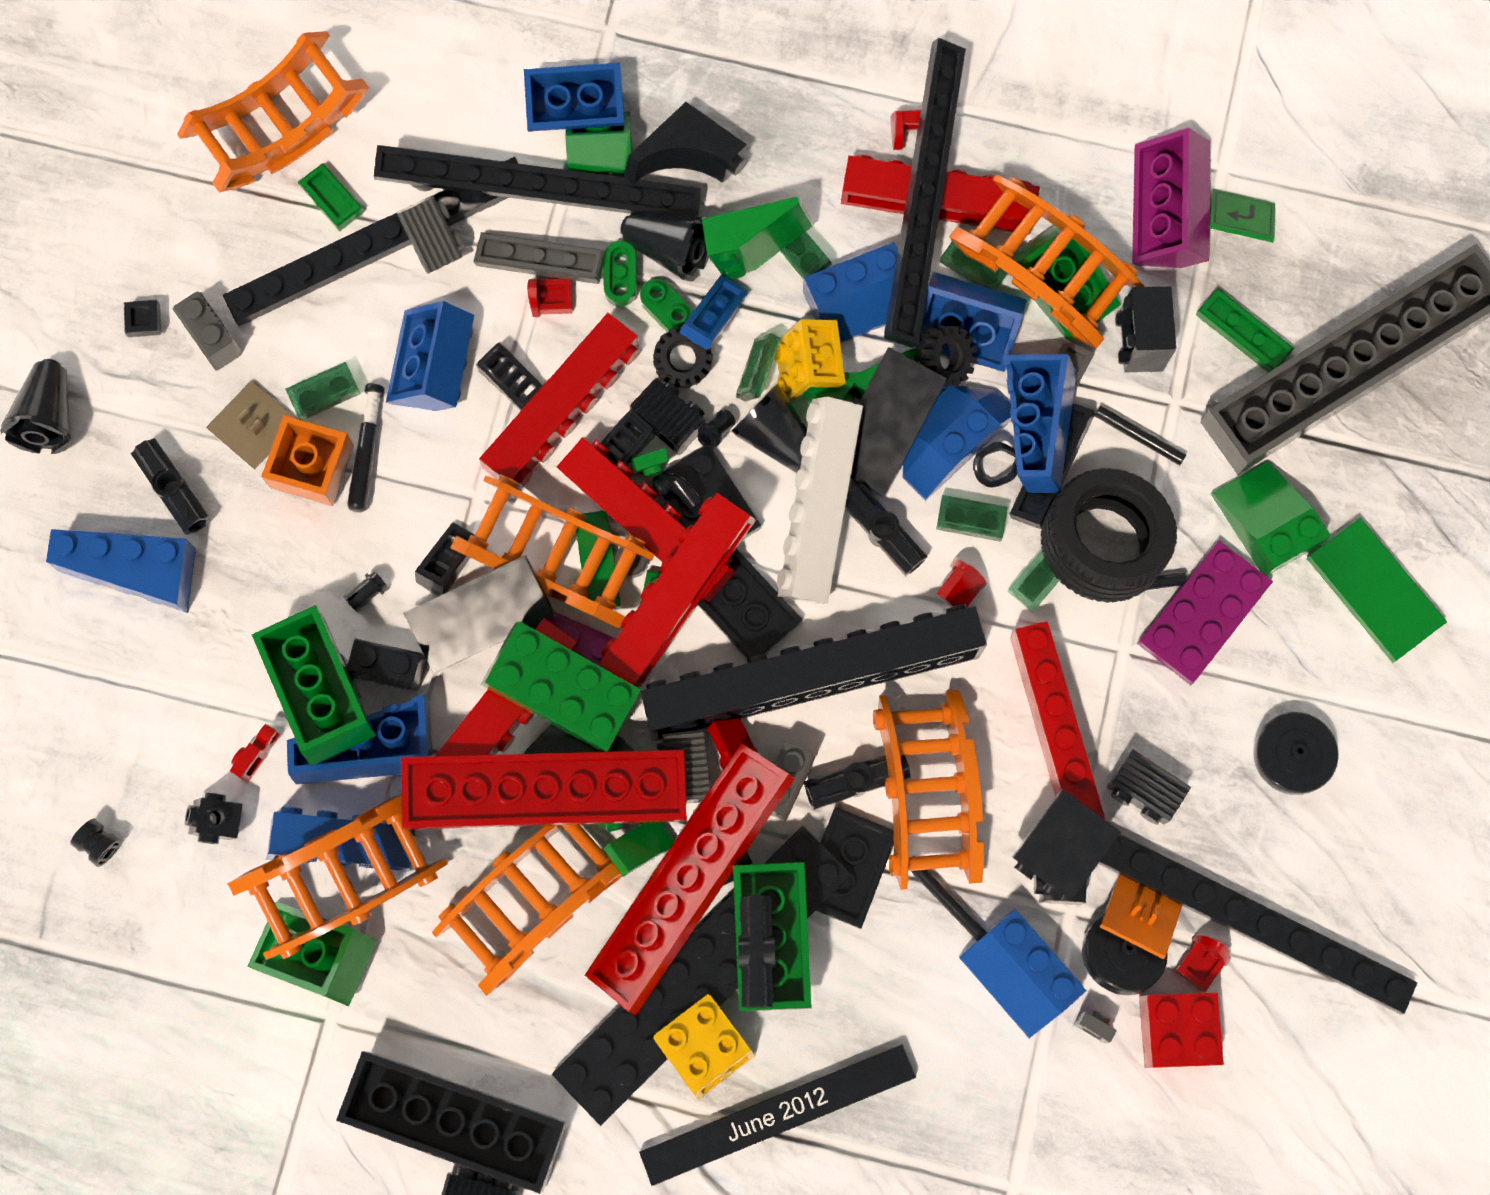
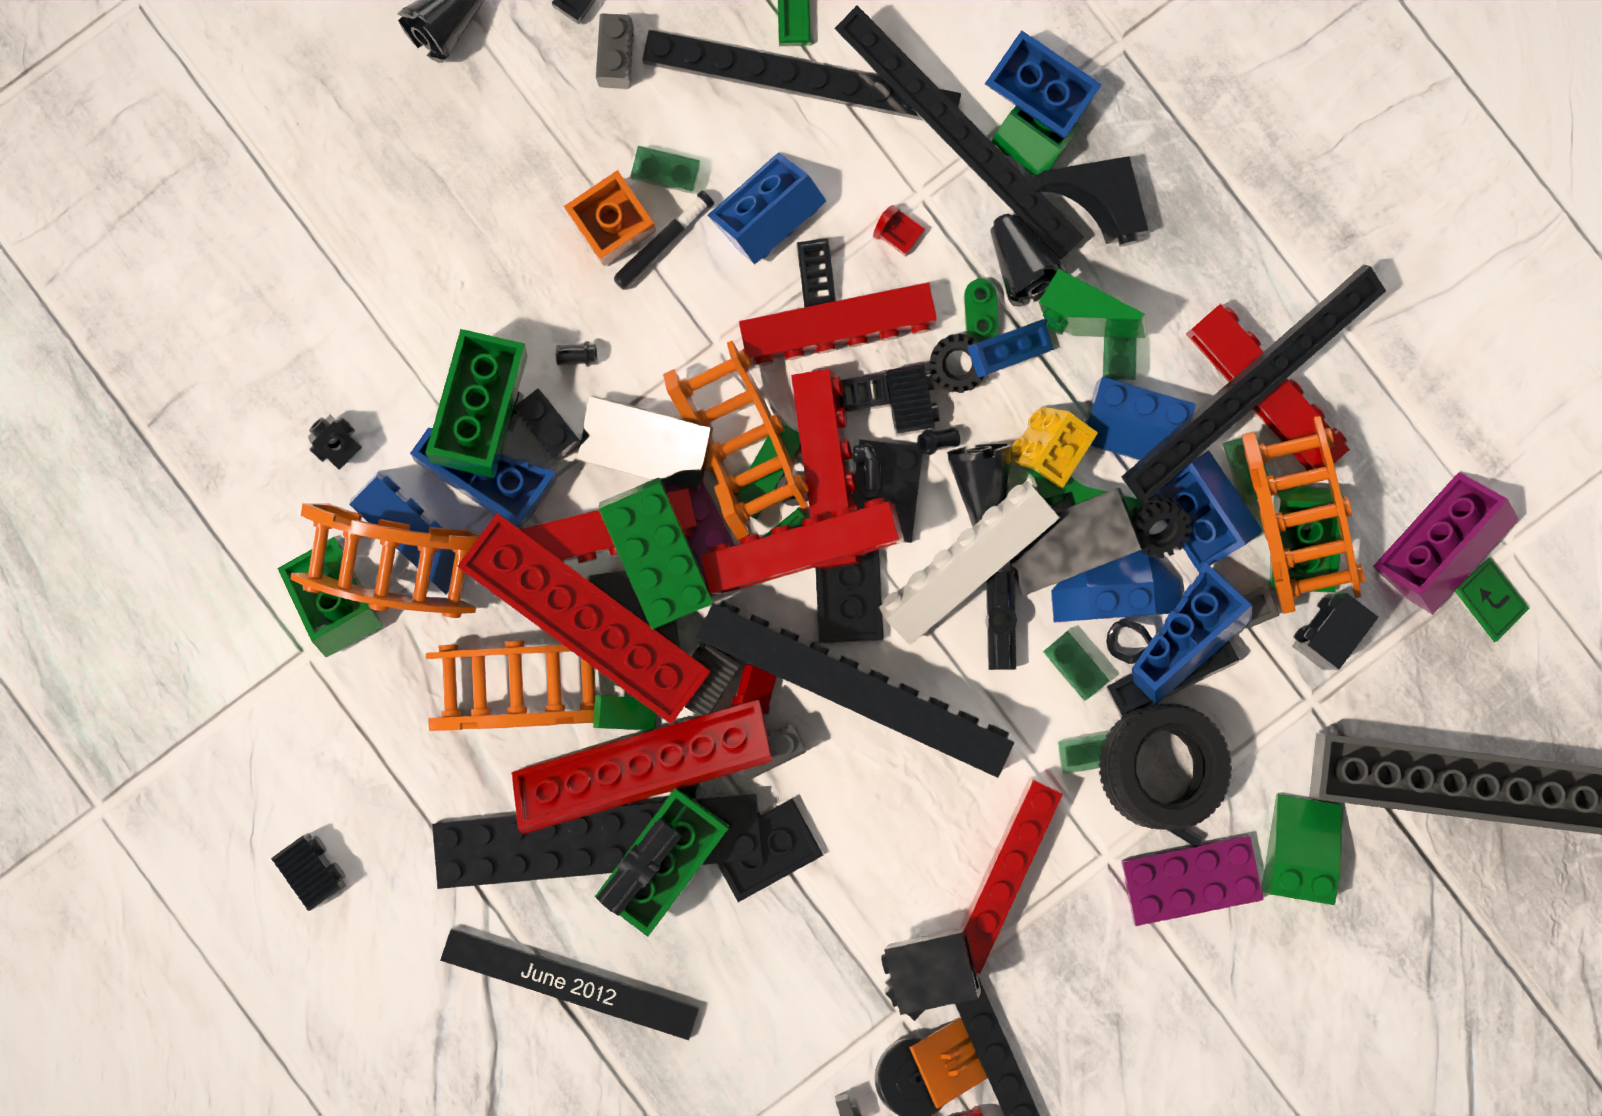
camera: 40 degrees right, 10 degrees up
(95, 842) = (237, 388): black wheel -> none
(132, 564) = (422, 199): blue wedge -> none
(159, 472) = (494, 135): black piece -> none
(249, 424) = (593, 151): dark tan piece -> none
(249, 759) = (394, 415): red plate -> none
(430, 235) = (843, 108): dark grey brick -> none
(447, 577) = (647, 392): black slope -> none
(452, 1121) = (334, 801): black brick -> none
(540, 258) = (914, 193): dark grey tile -> none
(618, 275) = (965, 256): green plate -> none
(650, 463) = (864, 428): green plate -> none
(703, 1046) = (553, 894): yellow bracket -> none
(757, 367) = (1010, 416): clear green tile -> none
(836, 786) = (844, 800): black piece -> none
(900, 122) = (1284, 306): red tile -> none
(950, 903) = (818, 931): black bar -> none
(961, 585) = (1023, 712): red tile -> none
(964, 781) = (897, 863): orange fence -> none
(1022, 974) = (826, 1031): blue slope -> none
(1140, 435) = (1260, 706): black bar -> none
(1148, 788) = (1034, 975): black brick -> none
(1244, 331) = (1413, 691): green tile -> none
(1295, 753) = (1166, 1040): black wheel -> none
(1376, 590) = (1337, 970): green tile -> none

